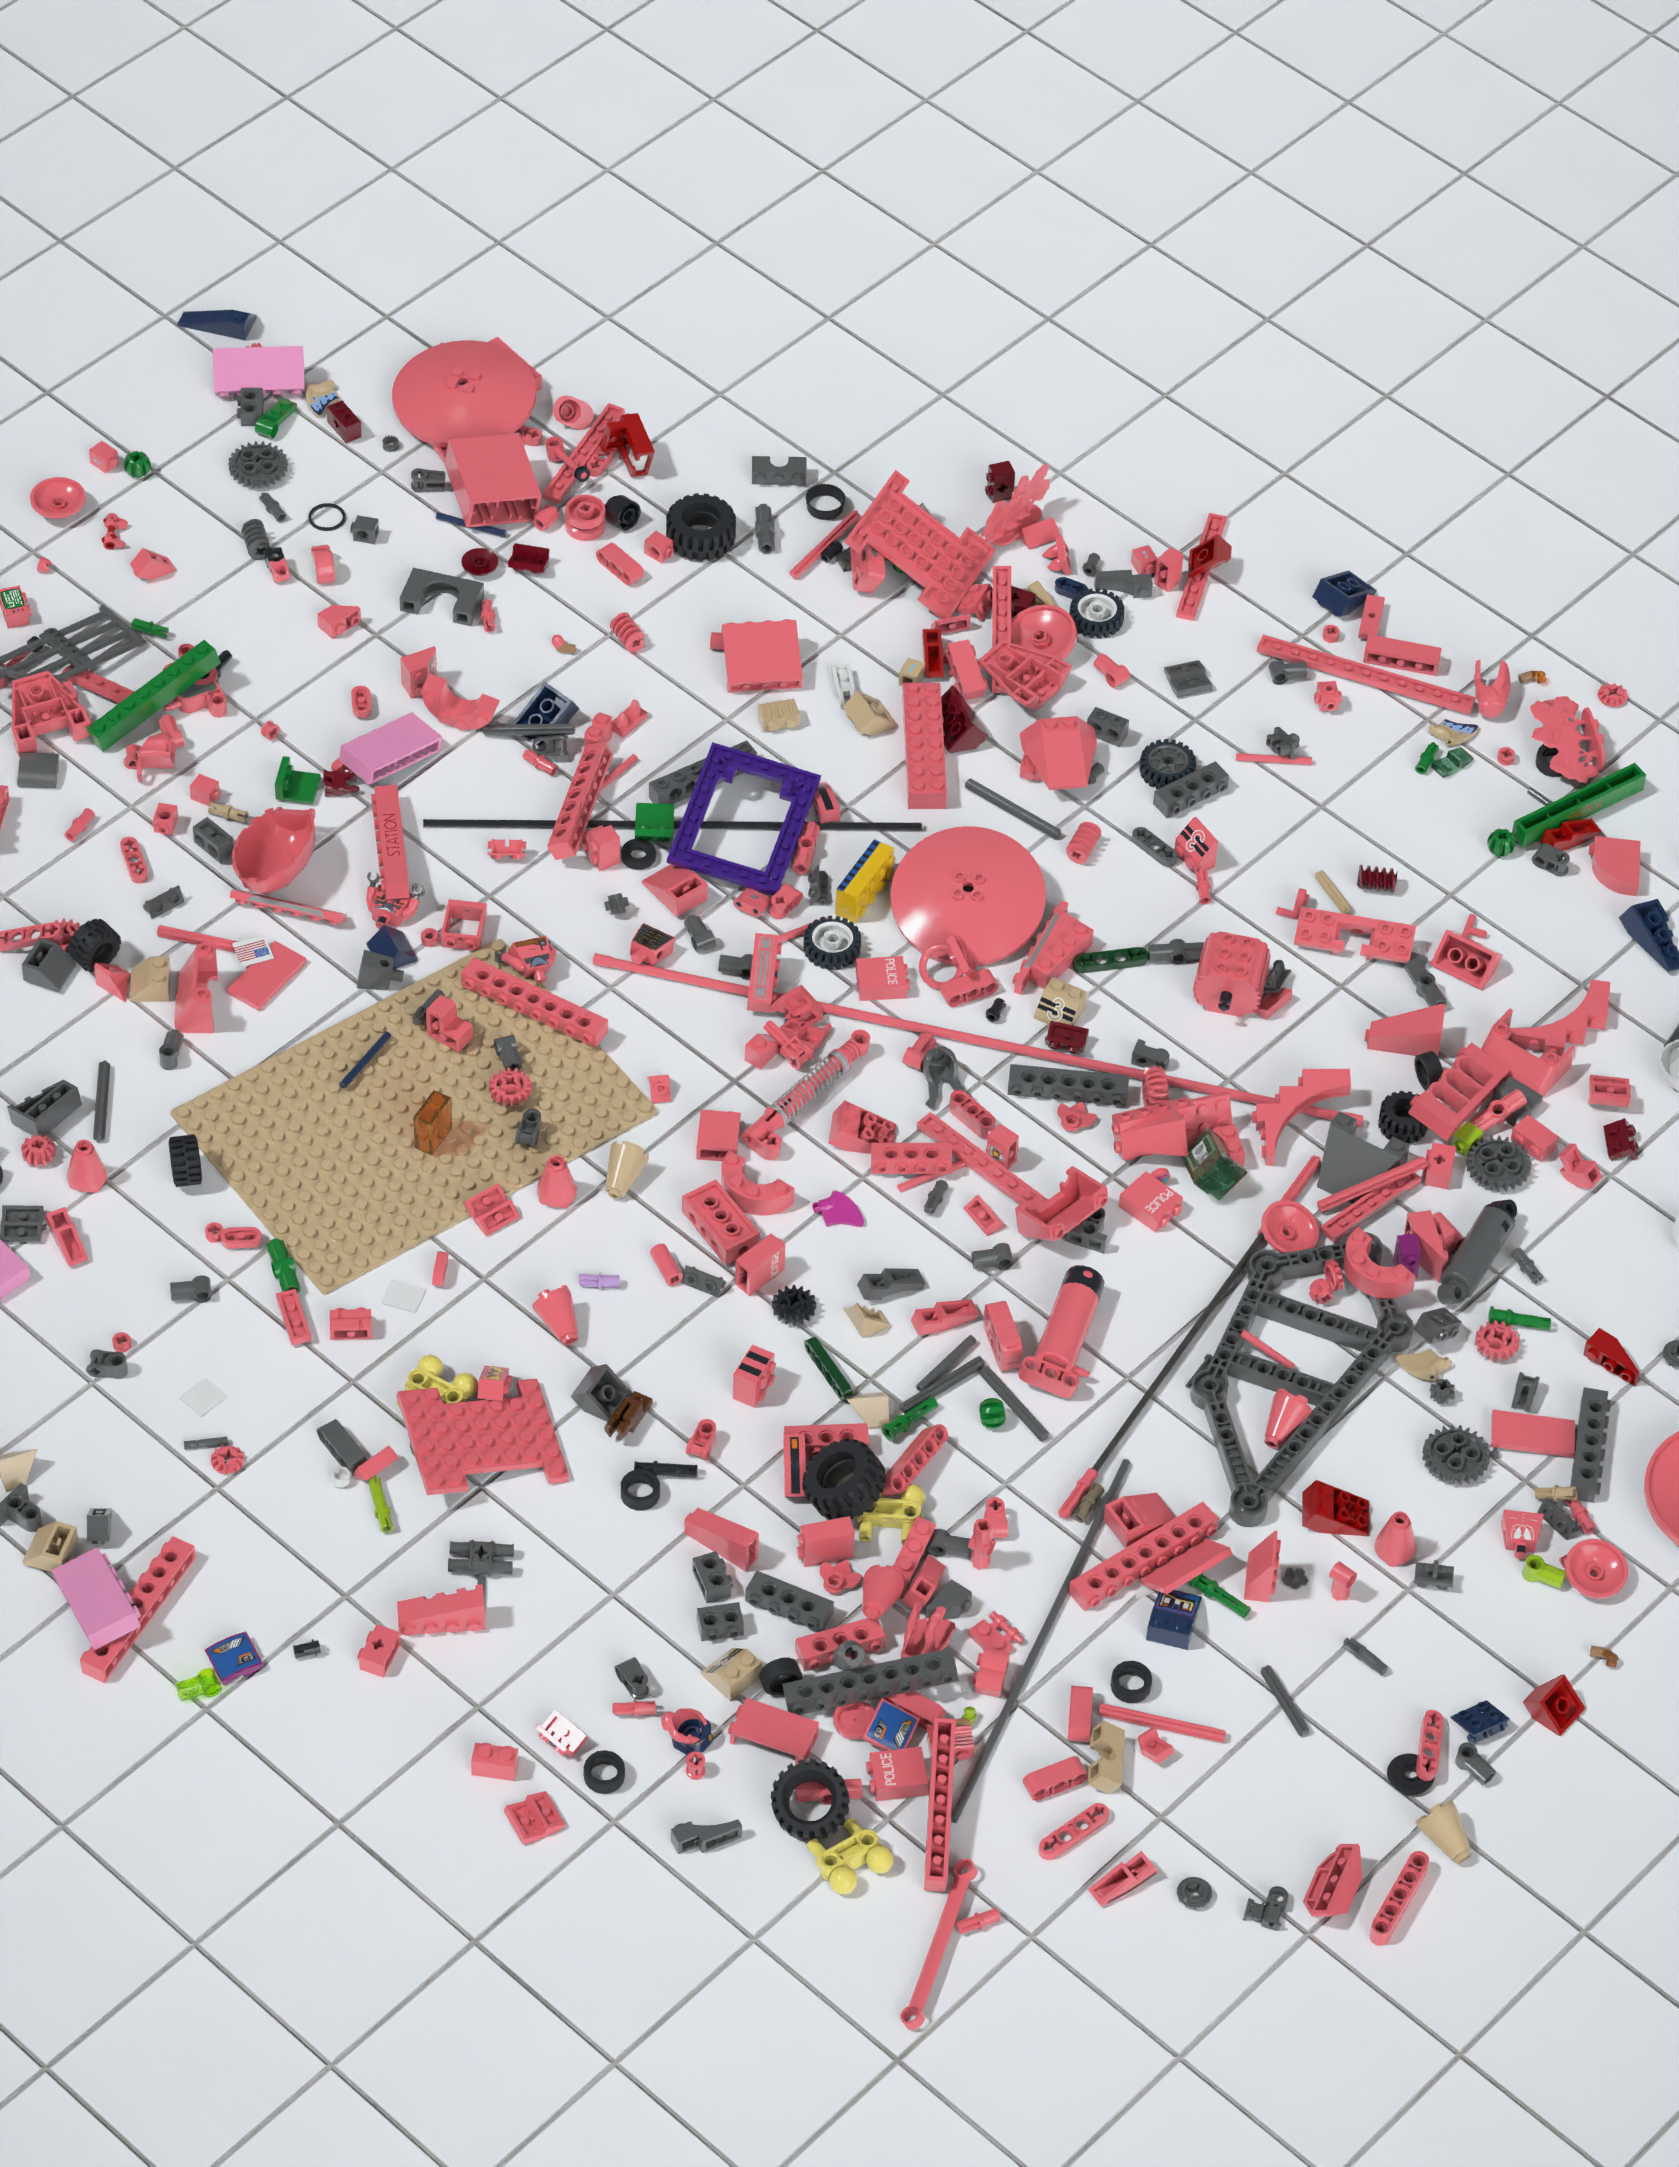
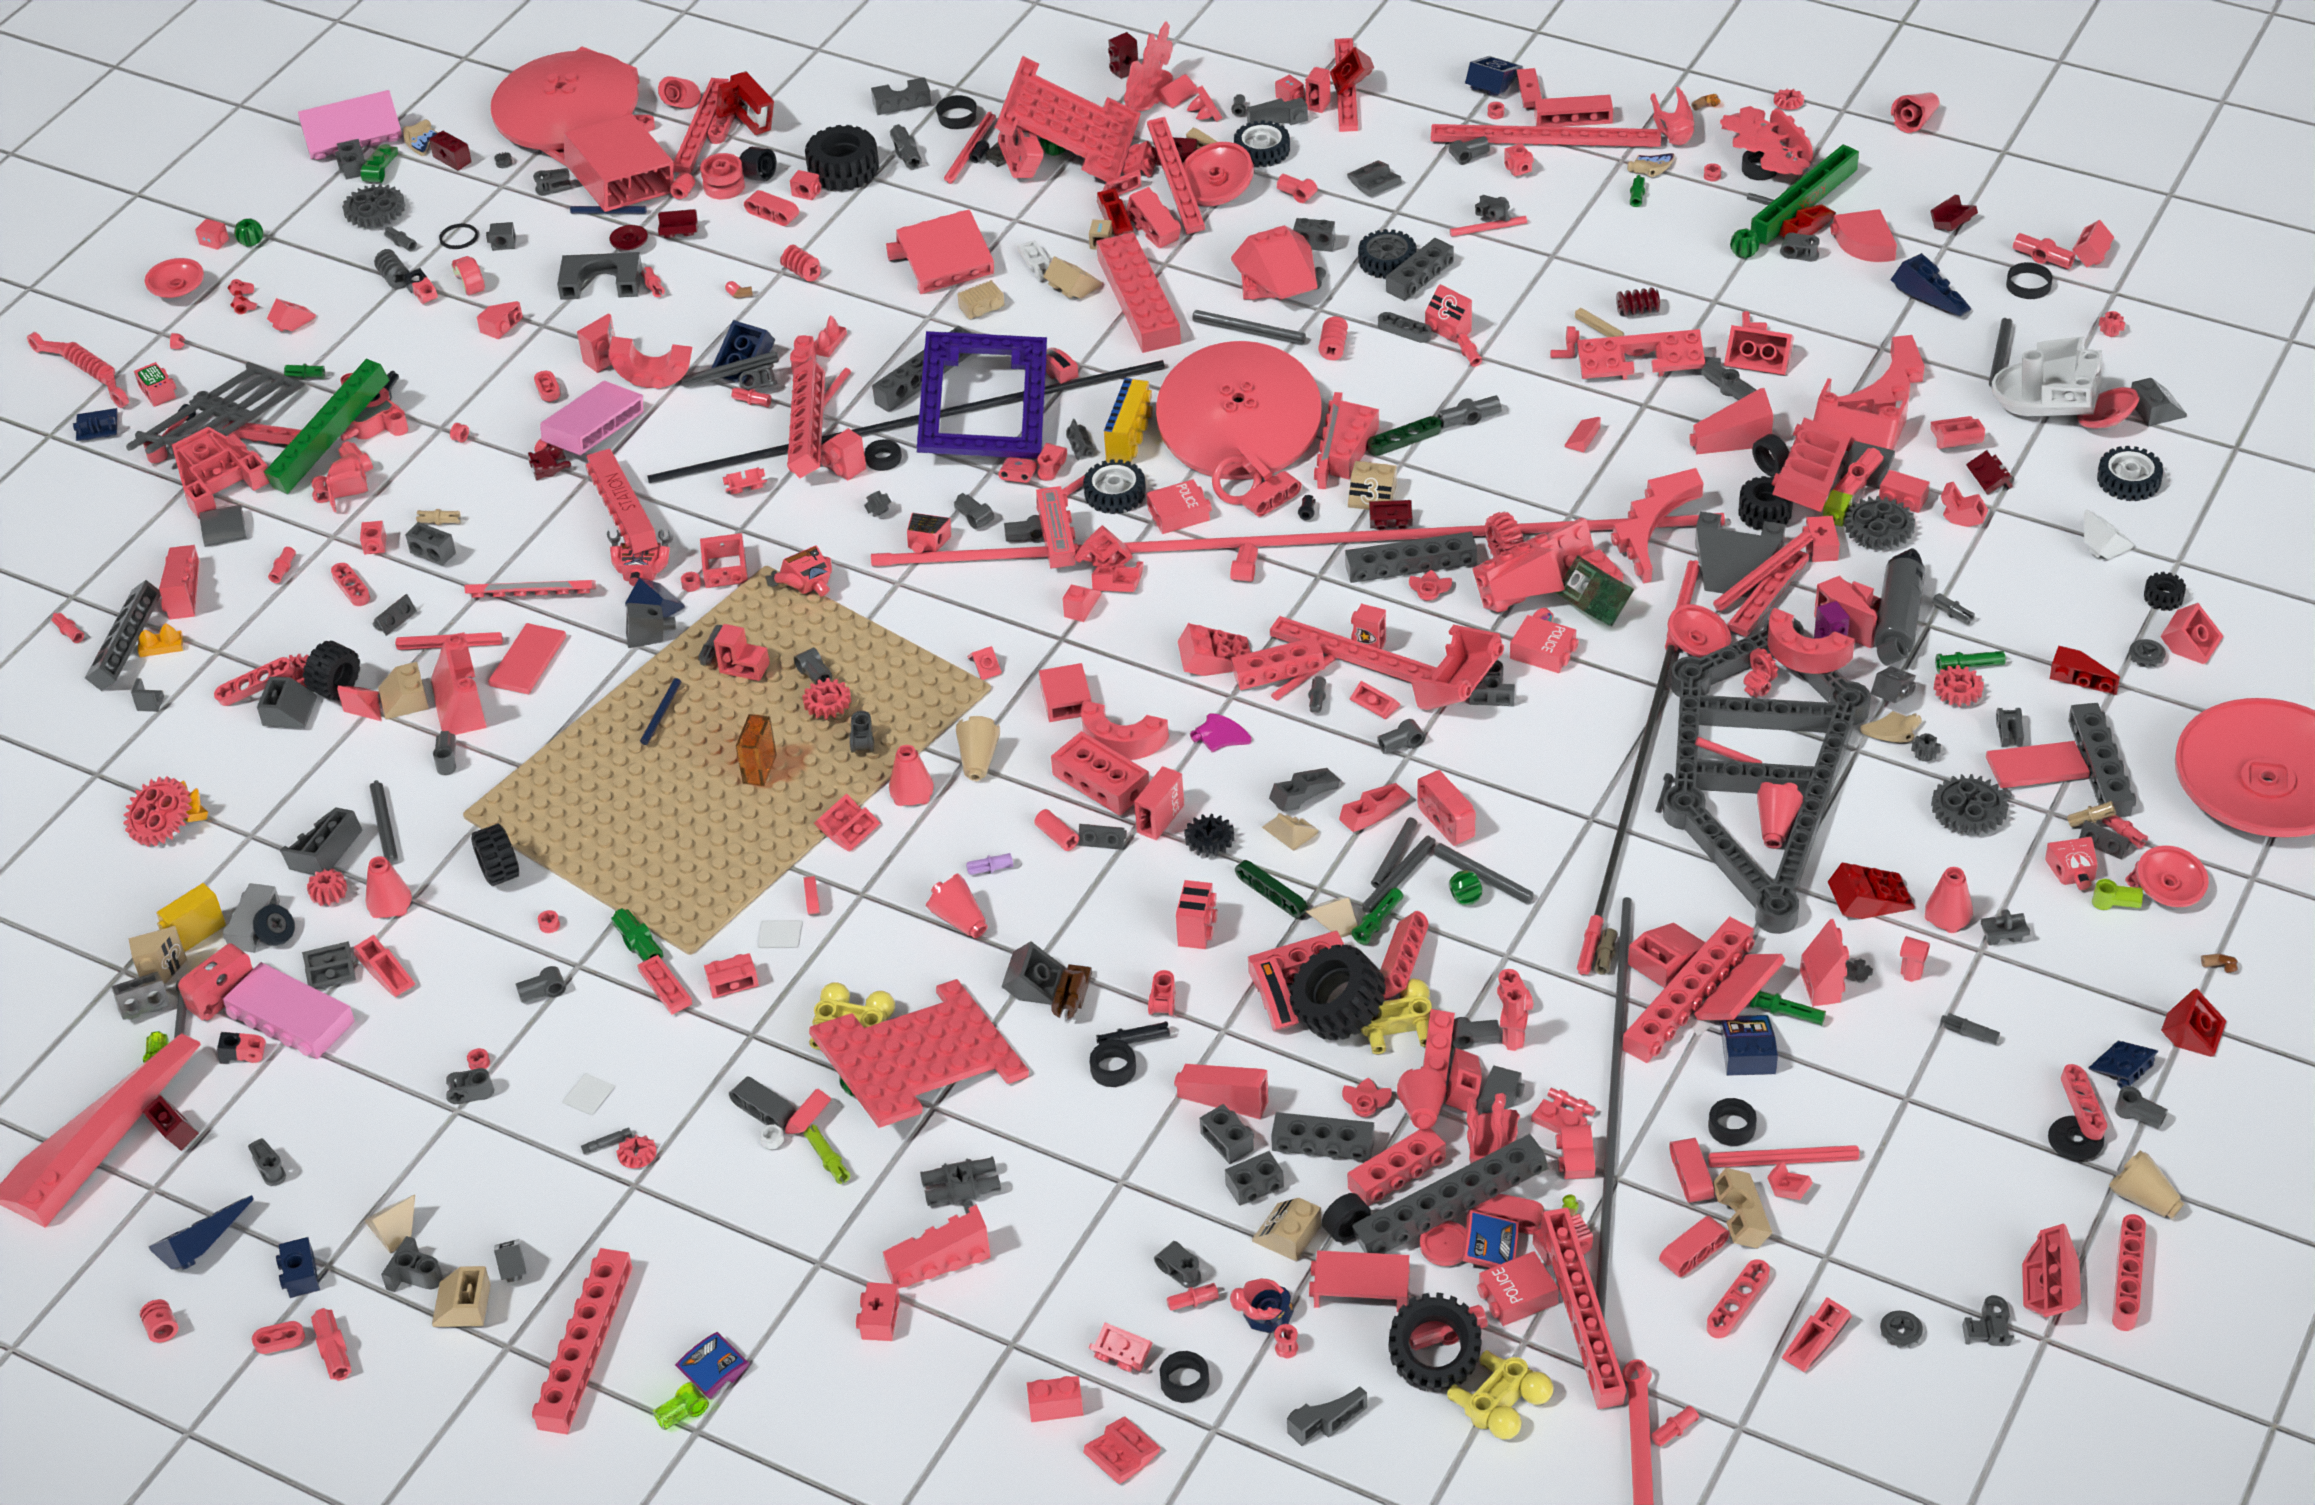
camera: 10 degrees left, 5 degrees down
(97, 1597) = (532, 1339): bright pink brick -> none
(204, 790) = (407, 501): coral brick -> none
(220, 322) = (298, 96): dark blue wedge -> none
(240, 1237) = (580, 919): coral plate -> none
(252, 950) = (505, 637): sticker -> none
(274, 849) = (500, 534): coral windscreen -> none
(295, 785) = (502, 475): green bracket -> none
(307, 1649) = (794, 1332): black pin -> none
(494, 1383) = (913, 993): coral brick -> none
(534, 1002) = (824, 612): coral brick -> none
(556, 452) = (673, 130): coral piece -> none
(654, 822) = (890, 420): green bracket -> none
(677, 888) = (936, 475): coral slope -> none
(761, 1133) = (1111, 680): coral piece -> none
(791, 1048) = (1110, 592): coral connector -> none
(806, 848) = (1054, 408): coral piece -> none
(826, 1541) = (1341, 1062): coral brick -> none
(850, 1647) = (1416, 1173): dark grey piece -> none
(940, 1065) = (1273, 569): dark grey hair -> none
(960, 725) = (1169, 267): dark red wedge -> none
(971, 1113) = (1323, 608): coral beam -> none
(1026, 673) = (1216, 206): coral wedge -> none
(1065, 1334) = (1511, 790): coral piece -> none
(1070, 587) = (1224, 129): dark blue beam -> none
(1147, 1056) = (1478, 511): dark grey leg -> none
(1231, 974) = (1536, 414): coral piece -> none
(1276, 977) = (1578, 411): dark grey hinge -> none
(1285, 1700) = (1906, 1098): dark grey axle -> none
(1453, 762) = (1664, 188): clear green slope -> none

